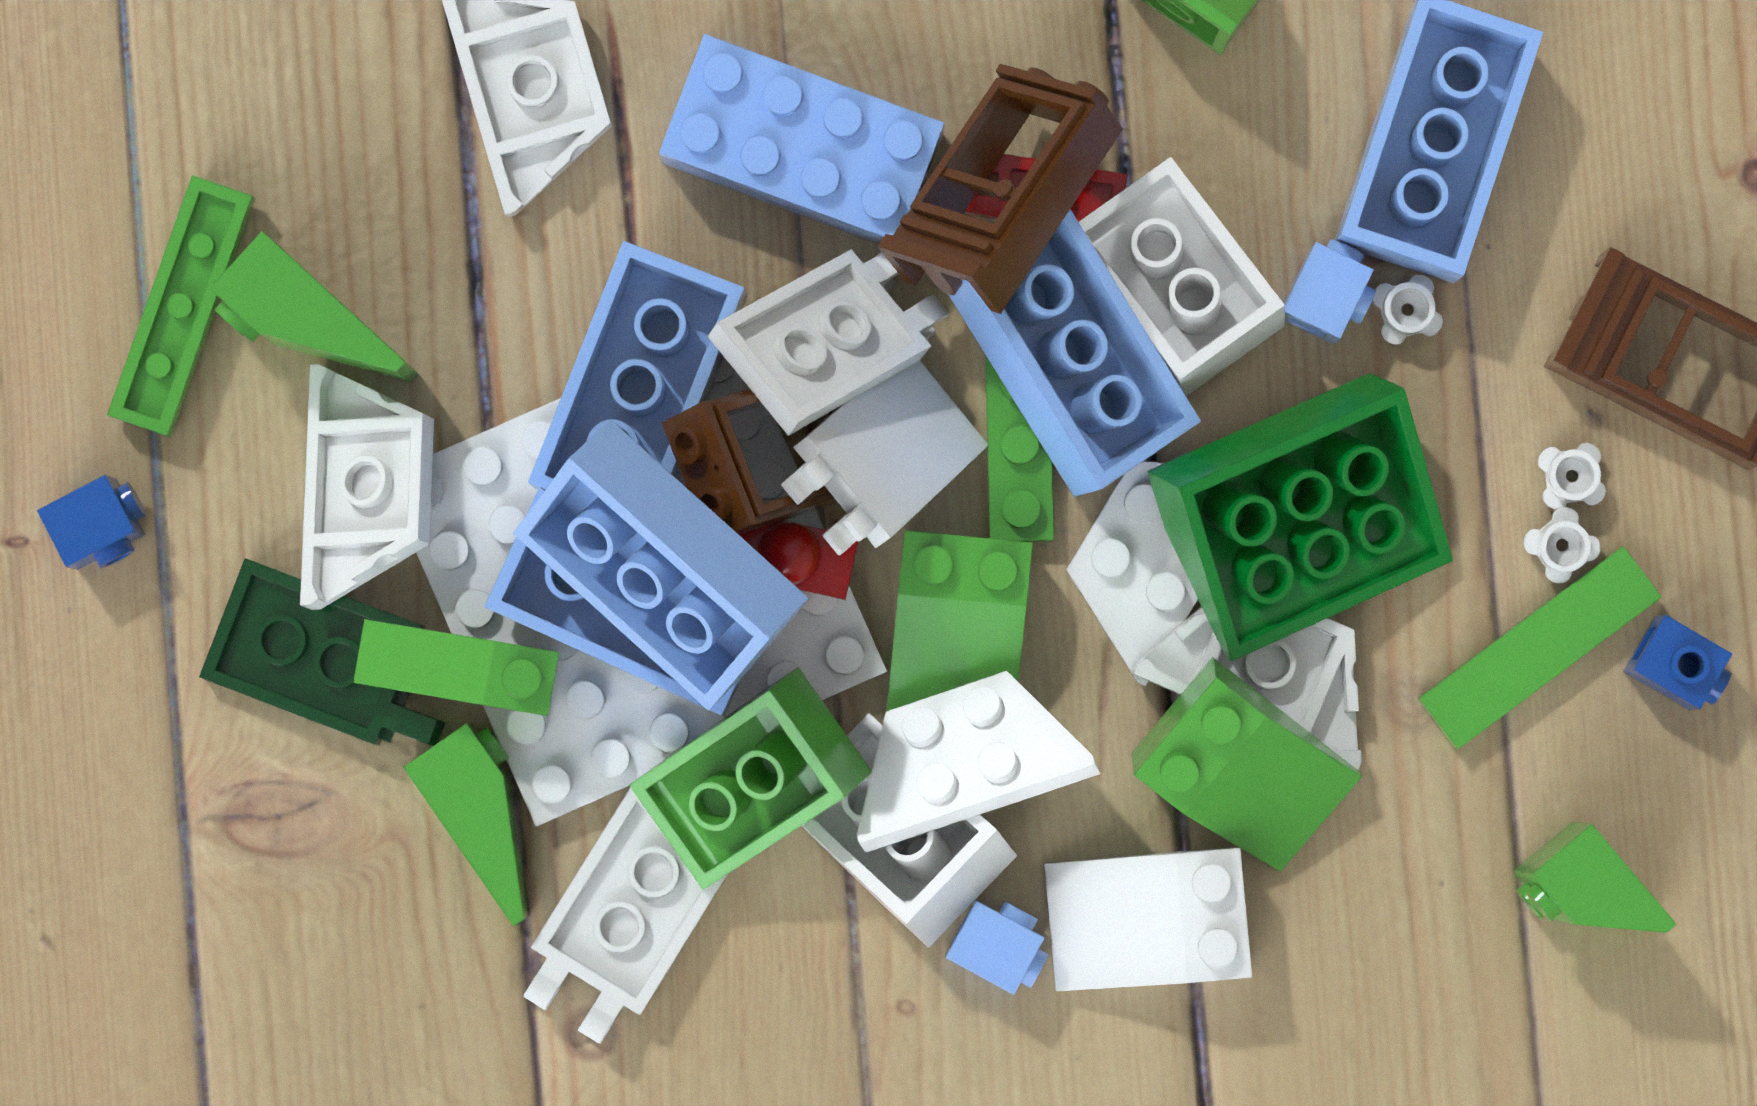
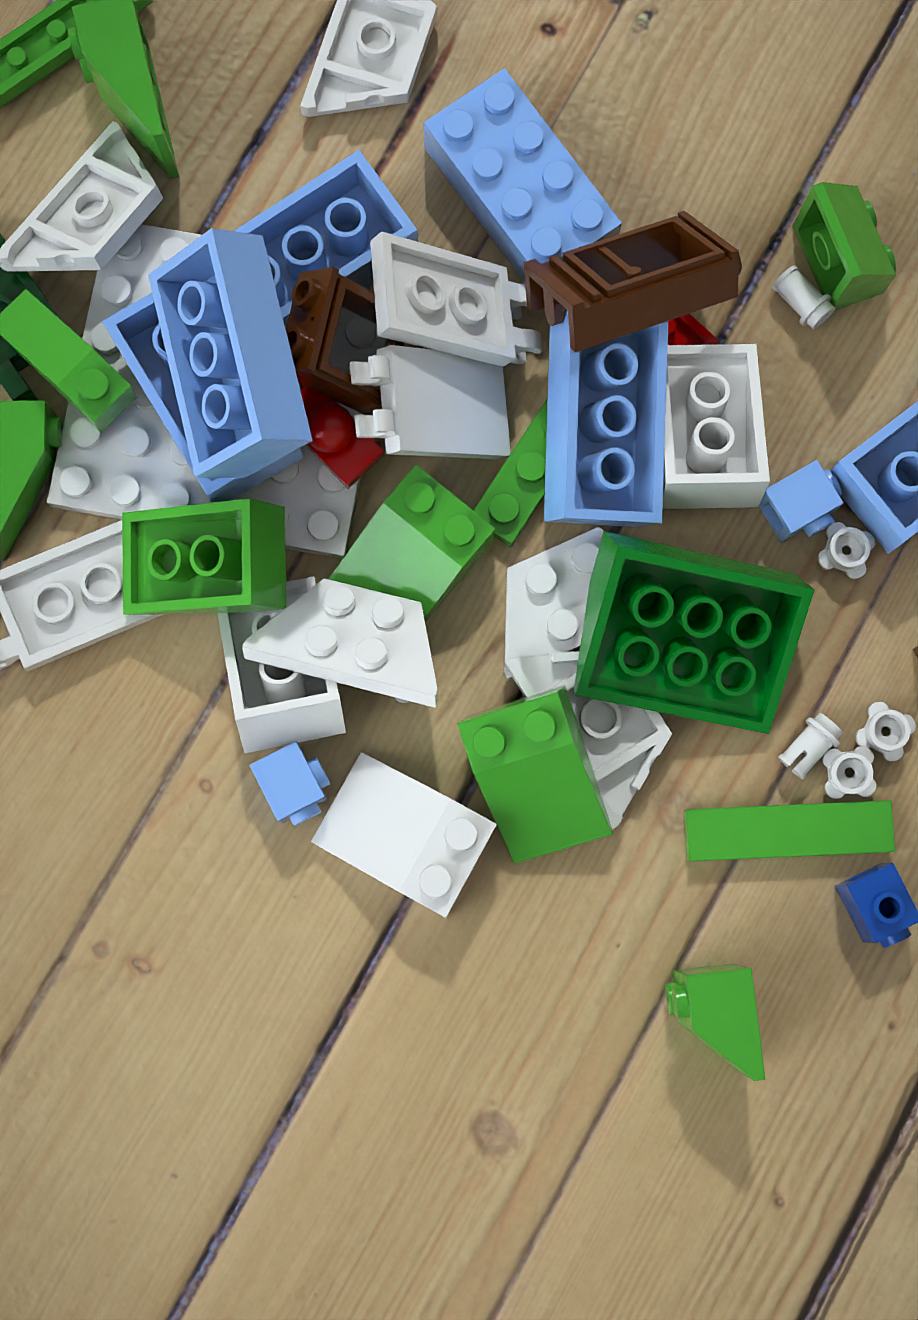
camera: 30 degrees right, 5 degrees down
(1184, 63) = (803, 298): none -> white pin
(1504, 538) = (813, 742): none -> white pin

